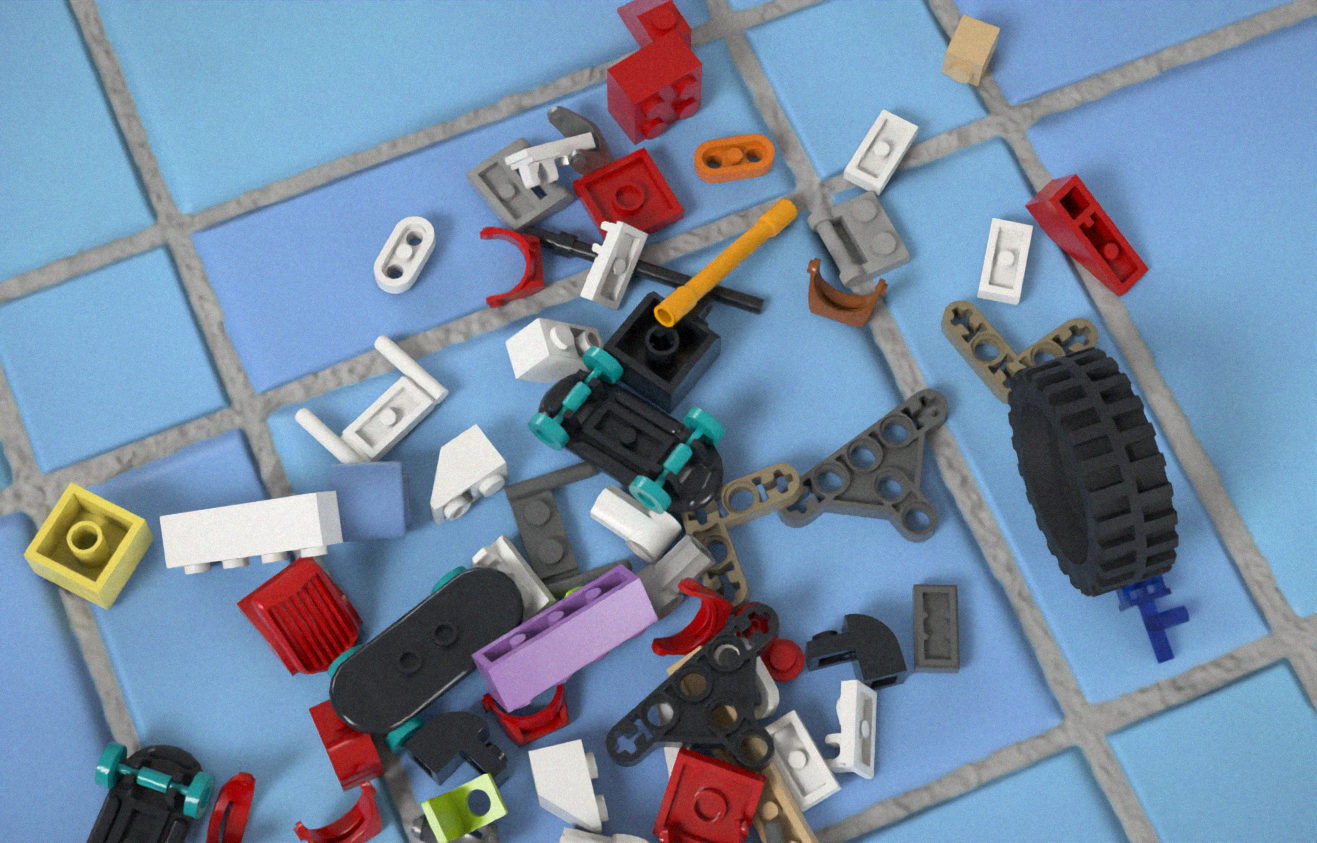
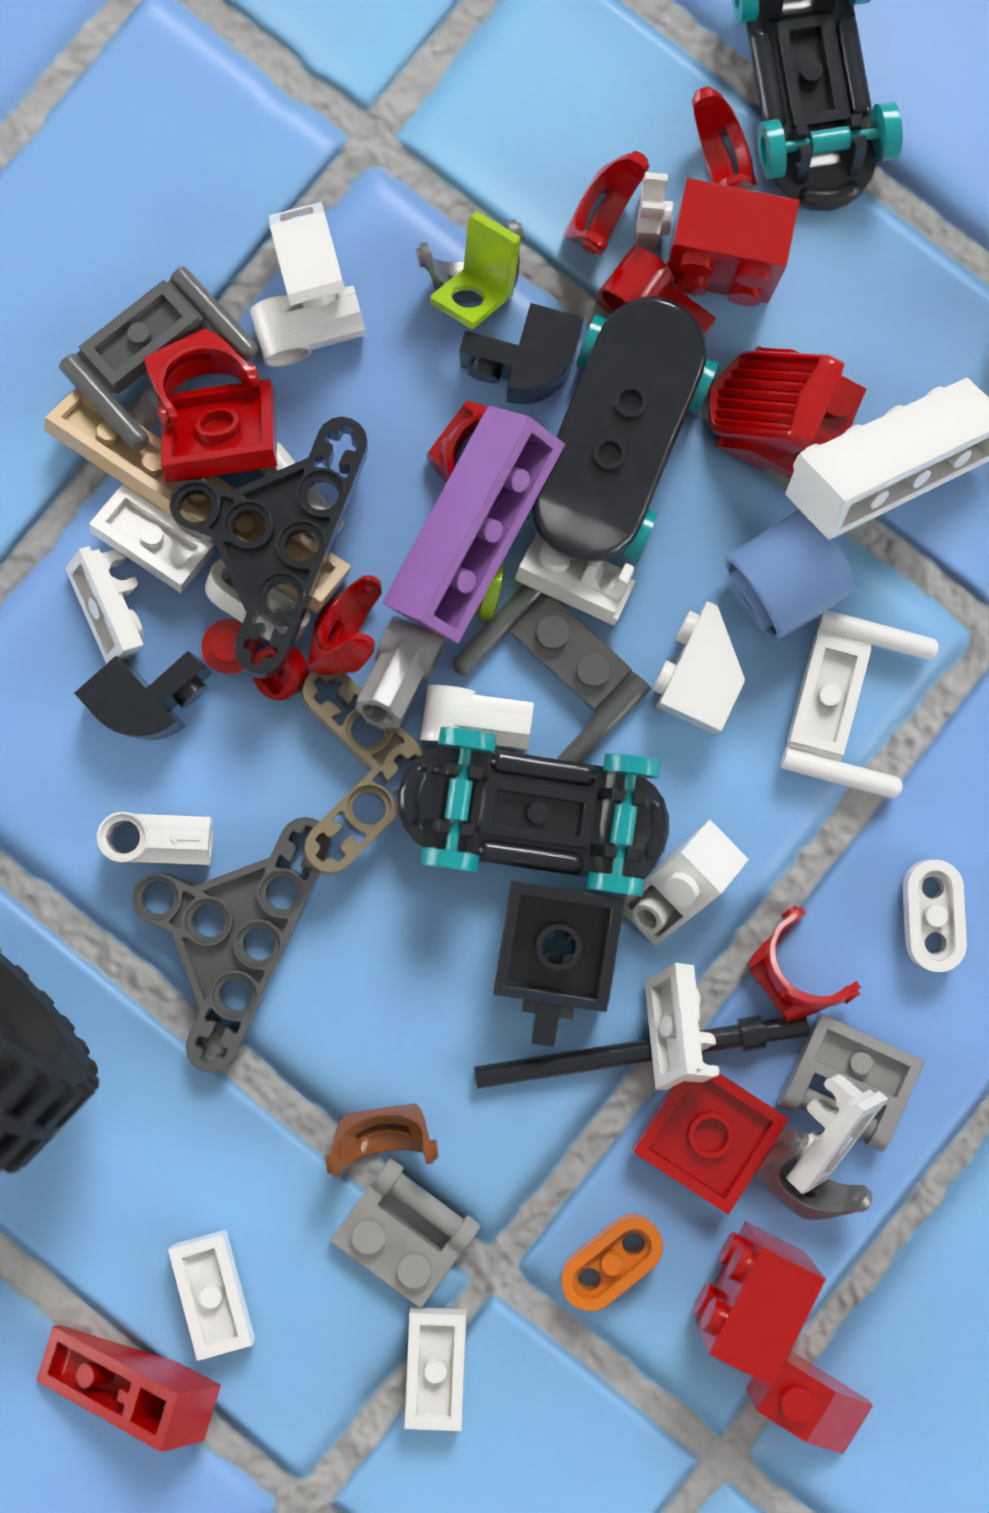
camera: 155 degrees right, 20 degrees up
(272, 740) = (731, 242): none -> red brick
(311, 800) = (653, 212): none -> white plate
(565, 786) = (388, 374): white slope -> none
(687, 296) = (558, 1016): light orange piece -> none
(895, 552) = (162, 839): none -> white piece
(935, 629) = (74, 773): dark grey plate -> none
(1049, 344) = (128, 1163): dark tan beam -> none

